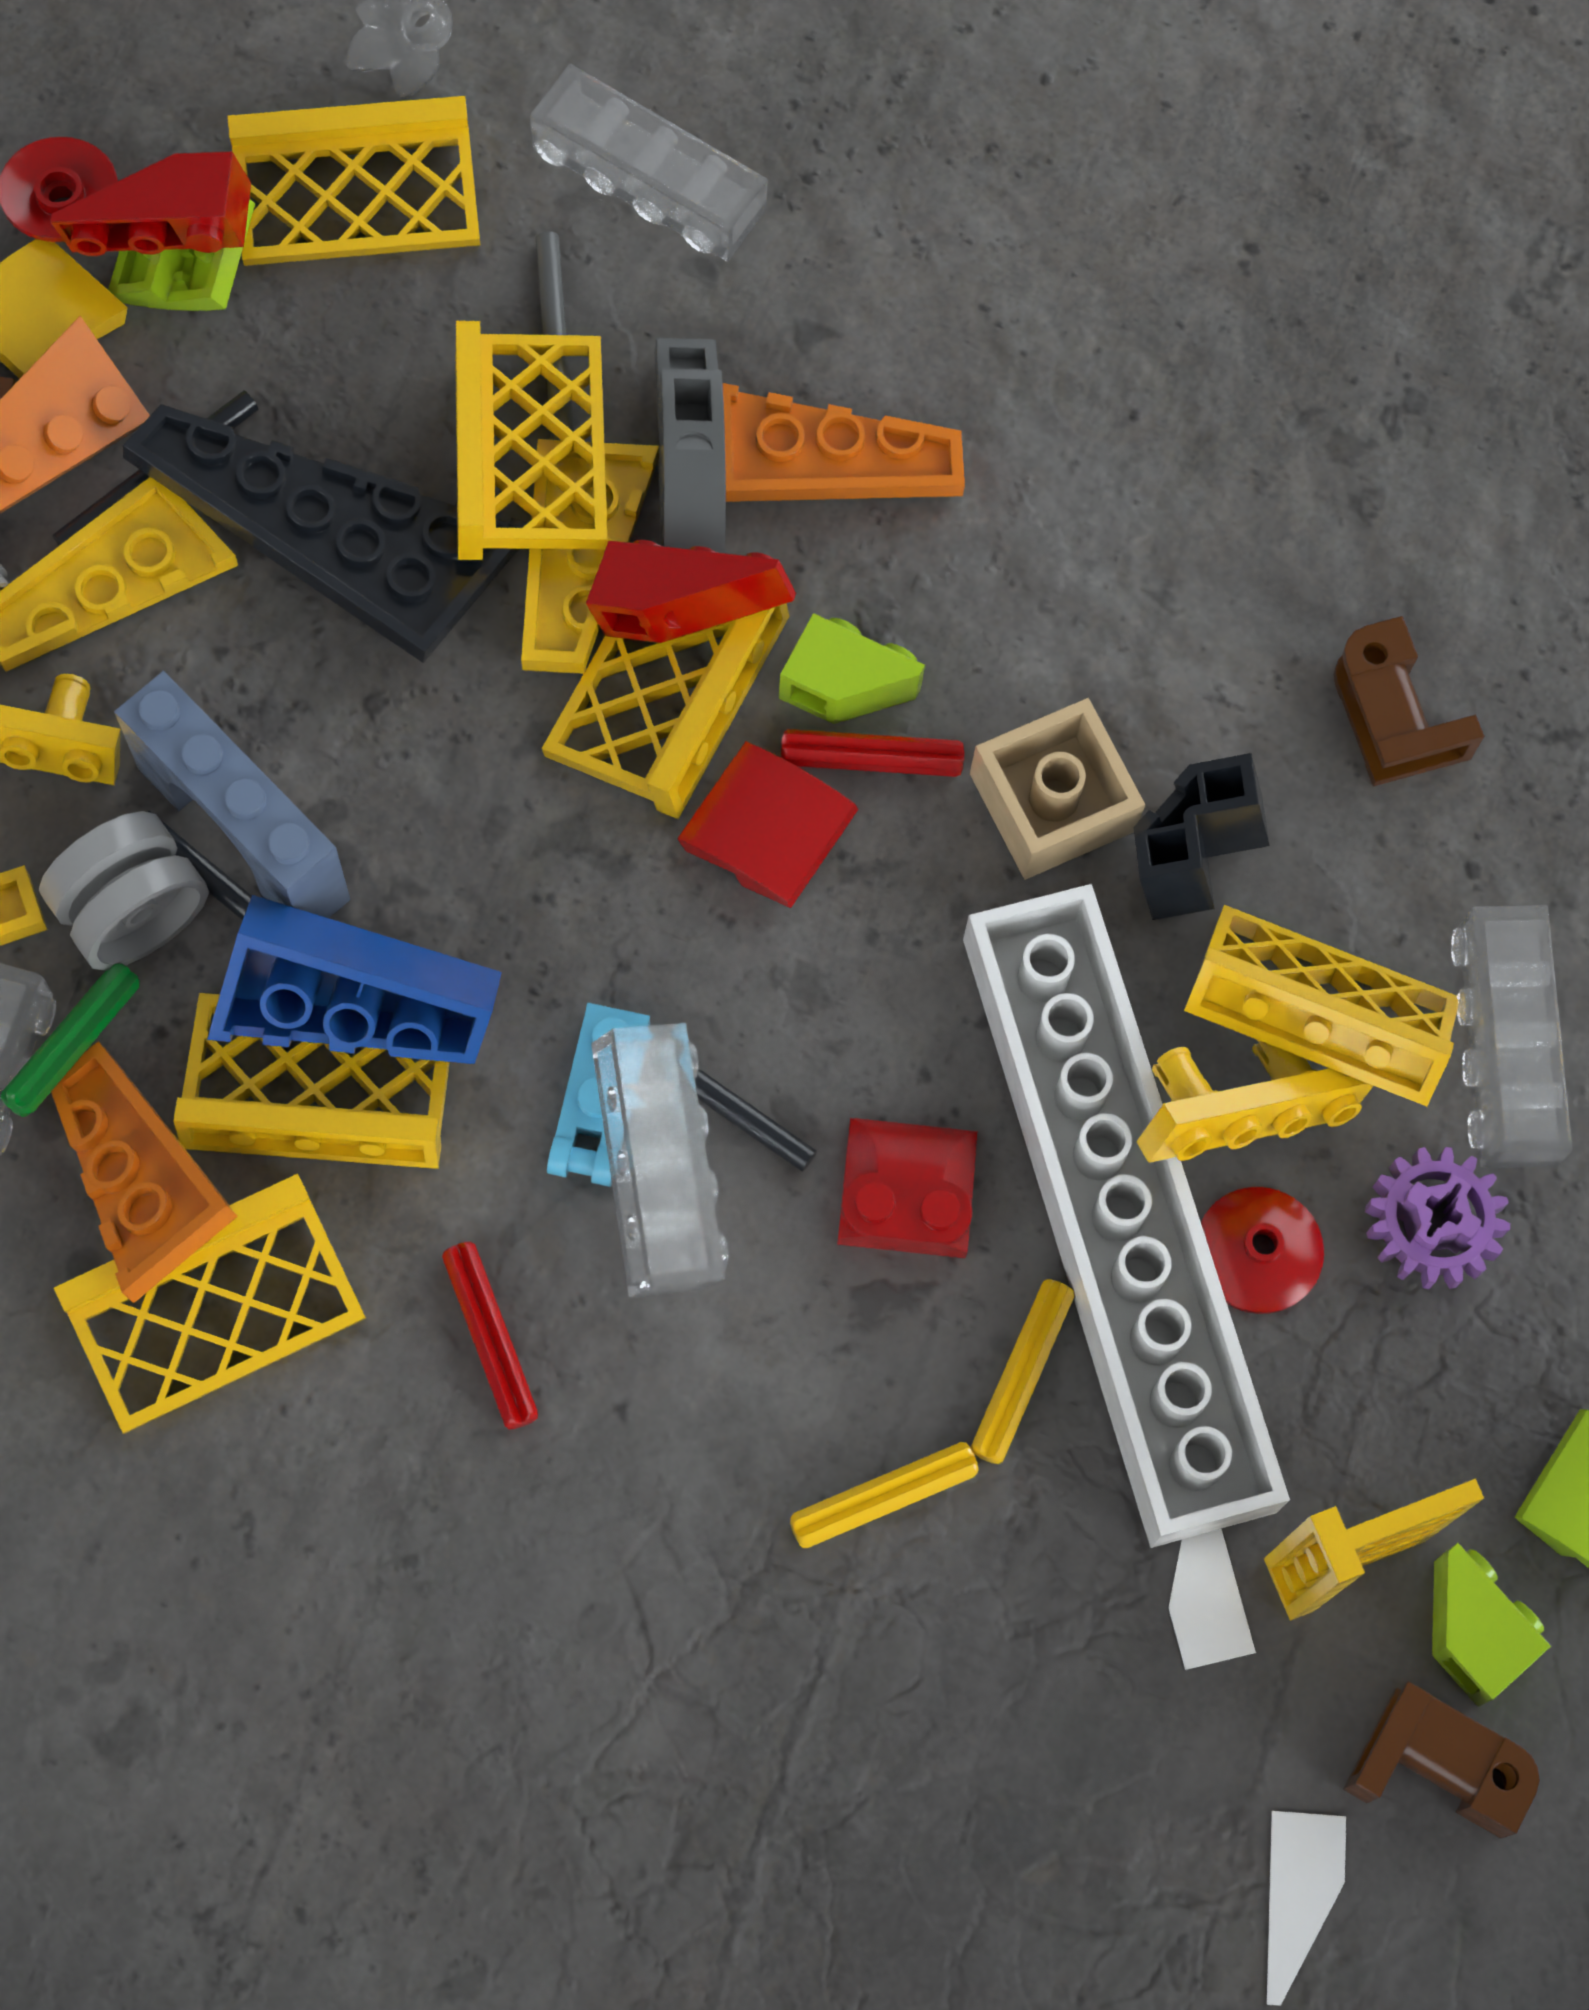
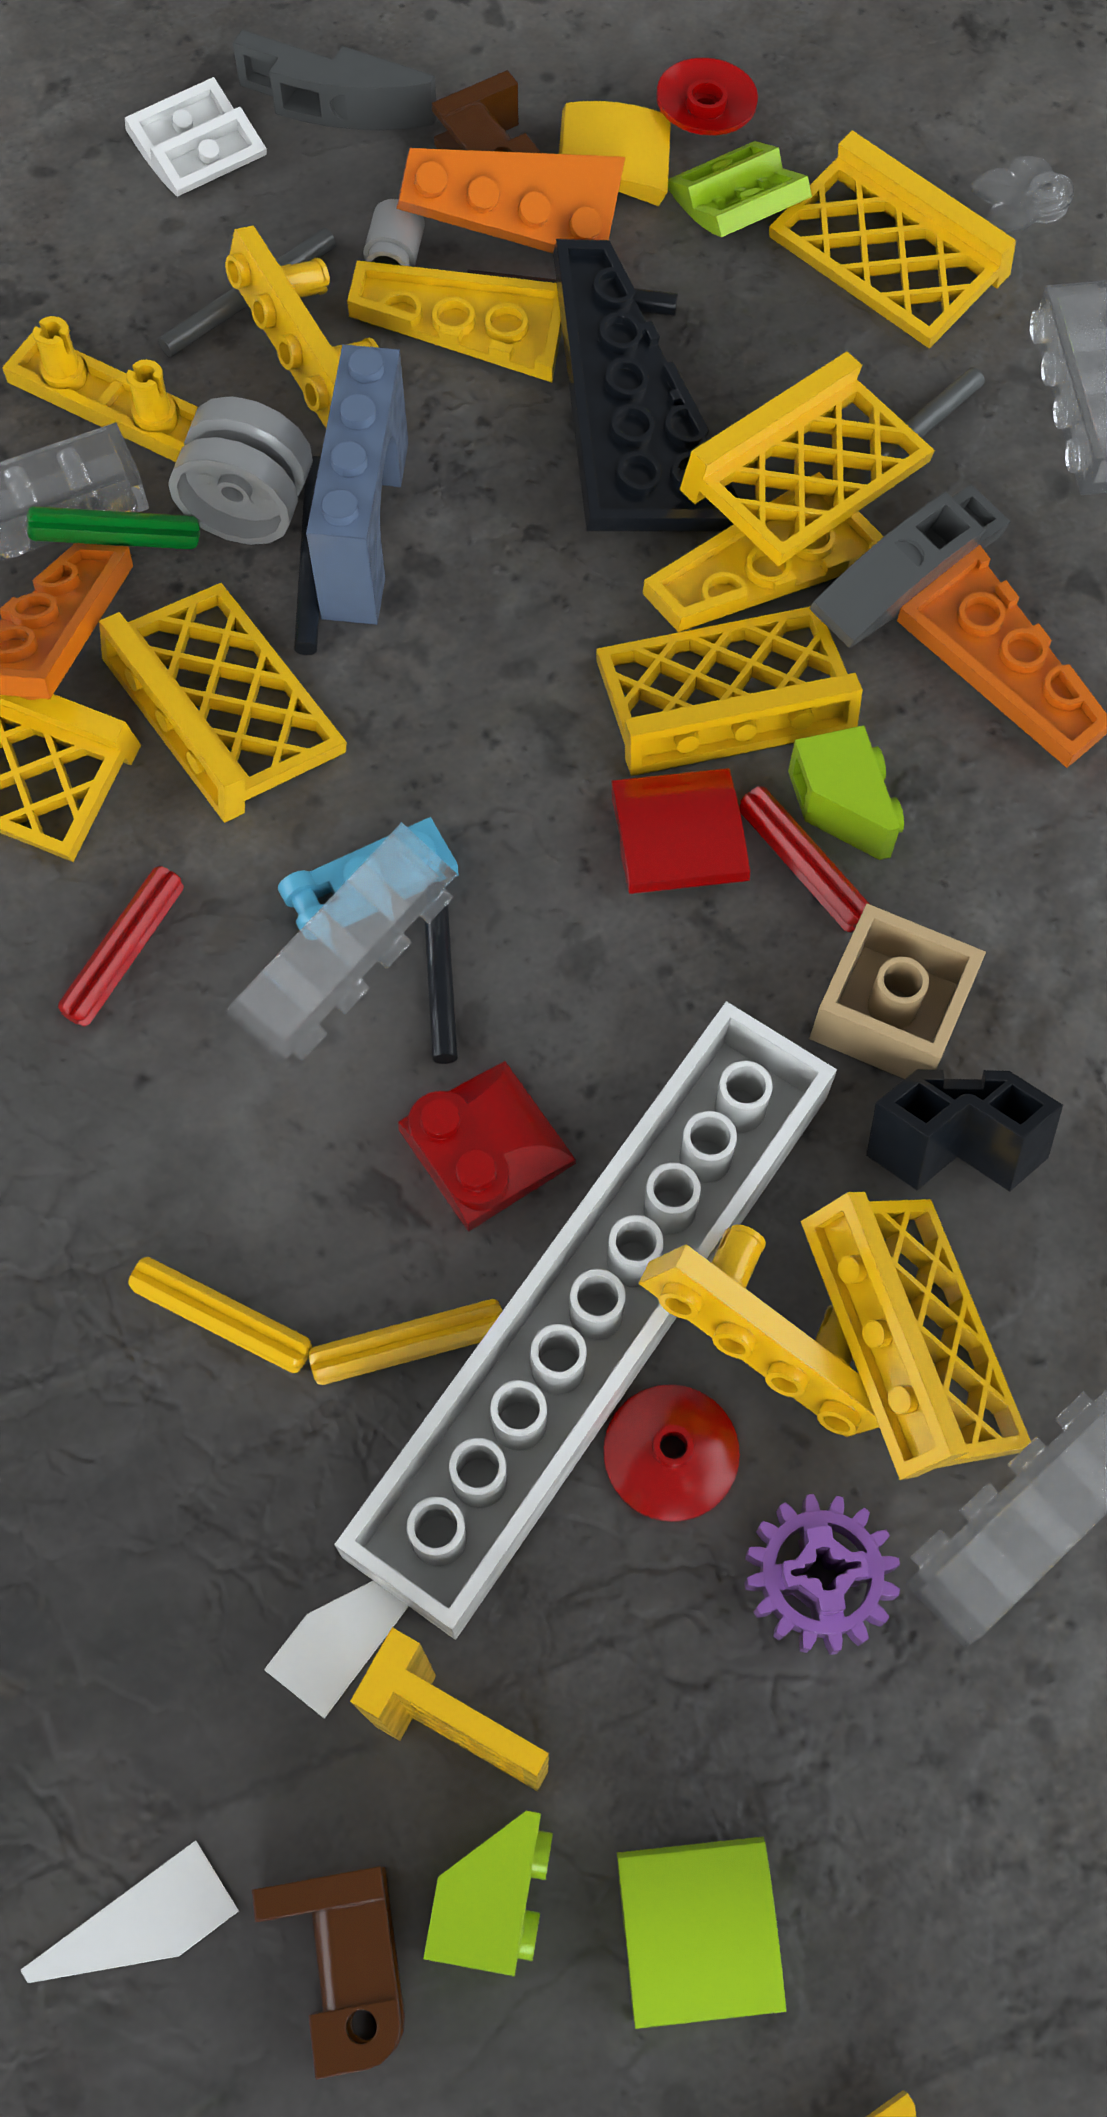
camera: 55 degrees right, 5 degrees down
(170, 205) = (748, 139): red slope -> none
(349, 989) = (287, 645): blue wedge -> none
(674, 592) = (788, 626): red slope -> none

